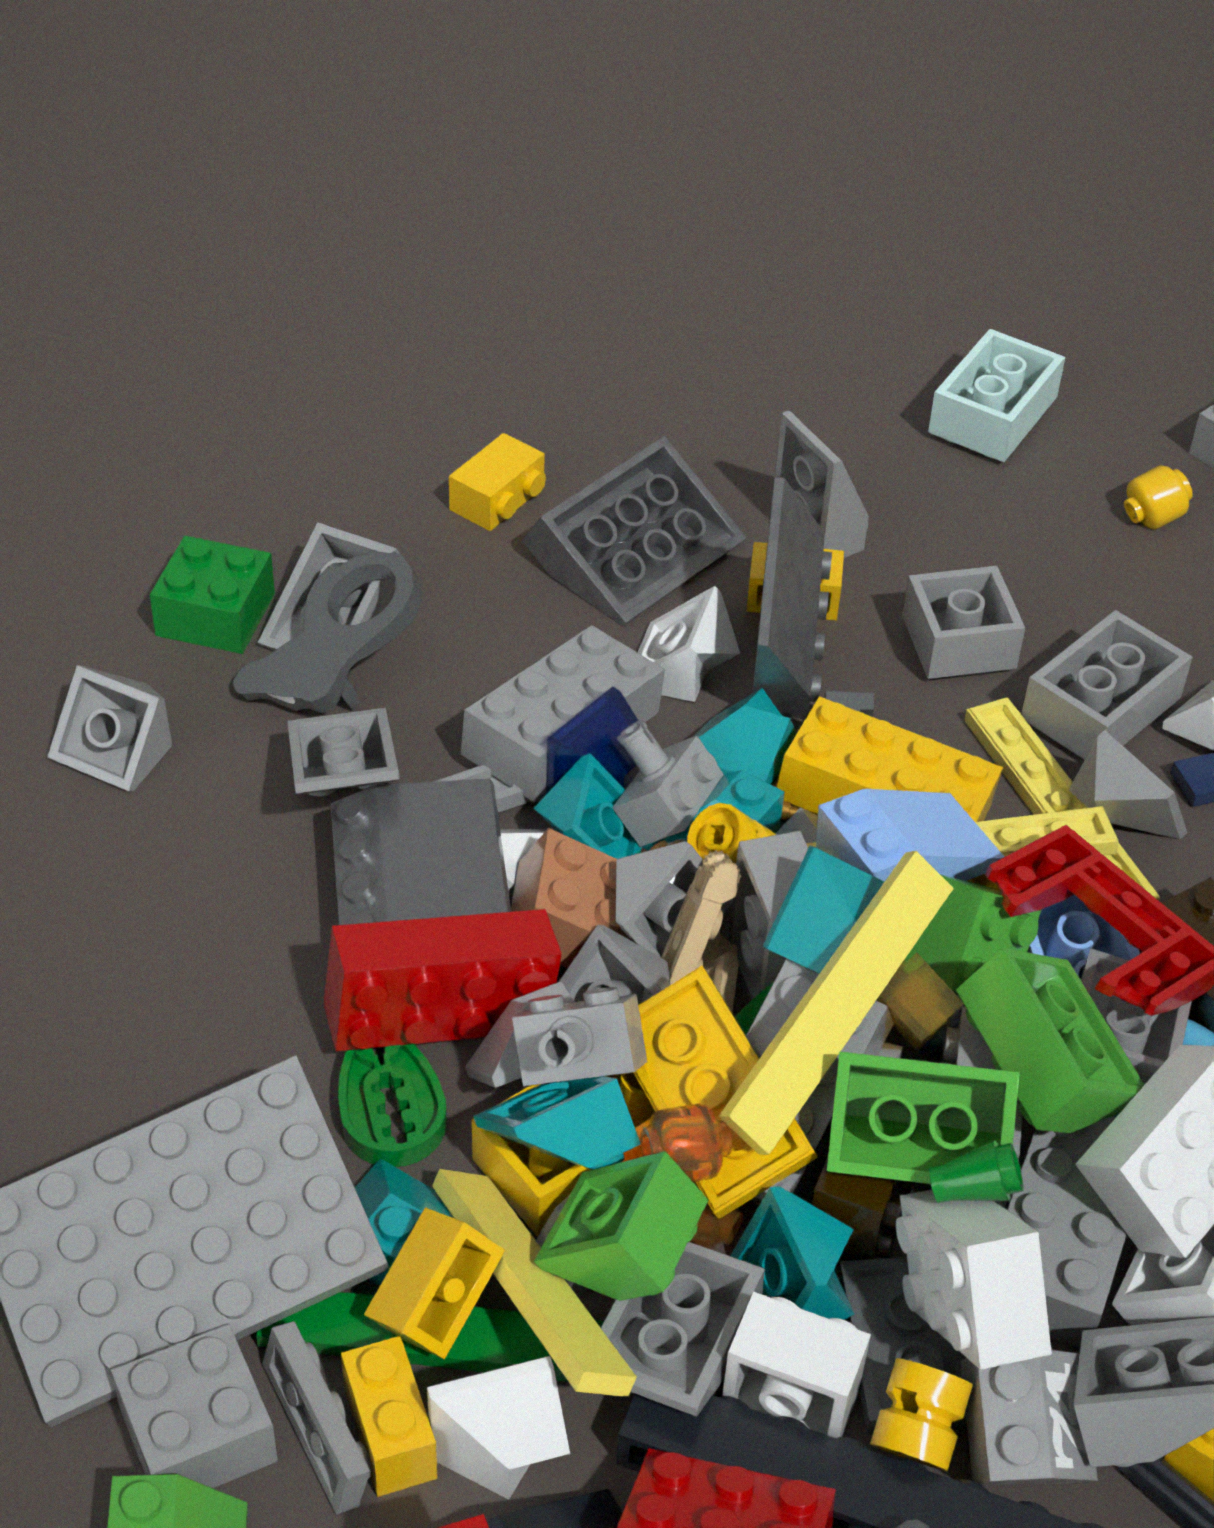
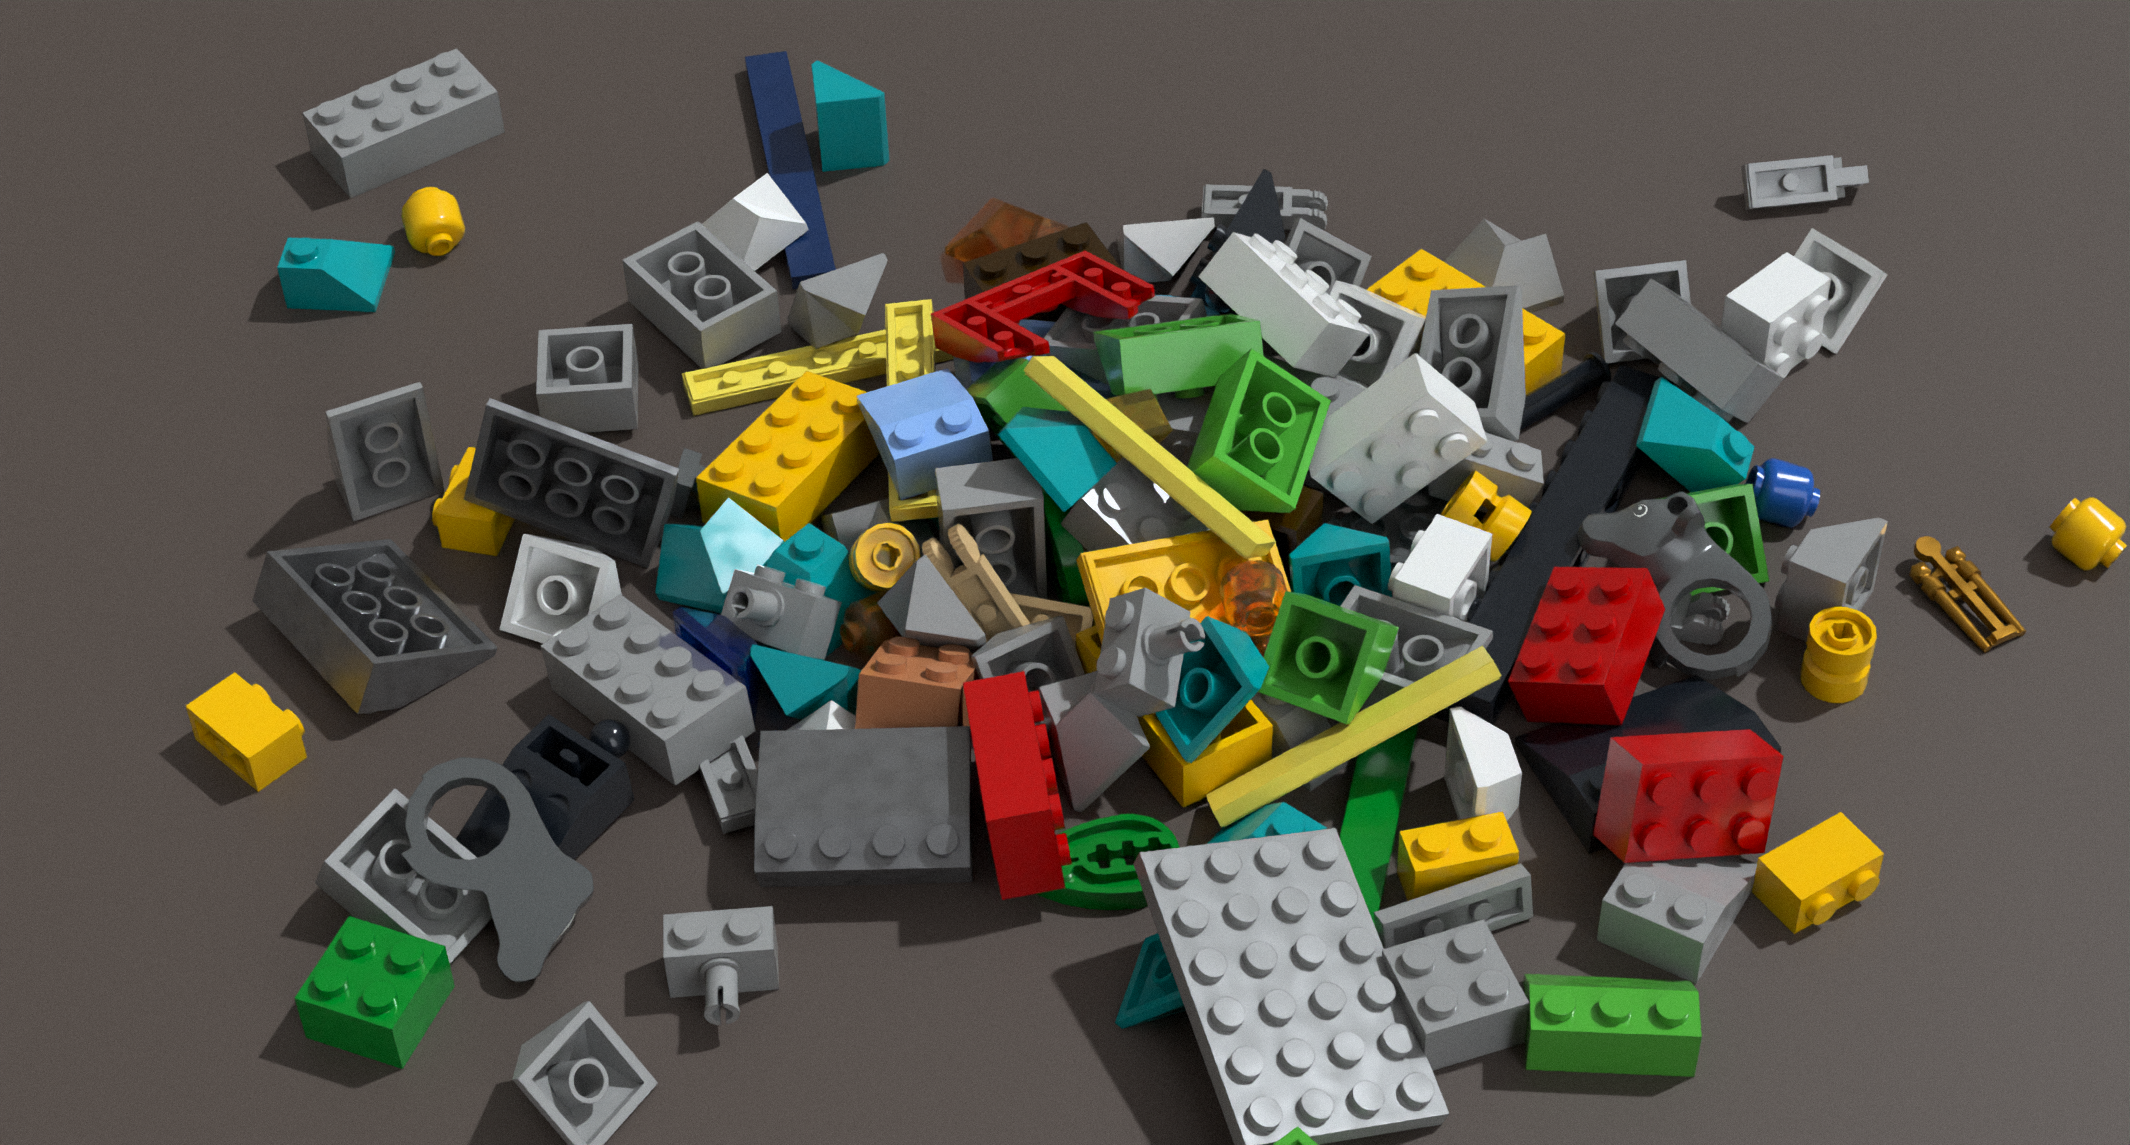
camera: 80 degrees left, 0 degrees up
(248, 801) = (720, 956): none -> light grey brick
(342, 752) = (703, 850): light grey slope -> none
(431, 672) = (572, 782): none -> black slope
(434, 1282) = (1355, 798): yellow brick -> none
(979, 1175) = (1327, 402): green cone -> none
(996, 395) = (244, 304): light aqua brick -> none
(1074, 448) = (334, 274): none -> teal slope

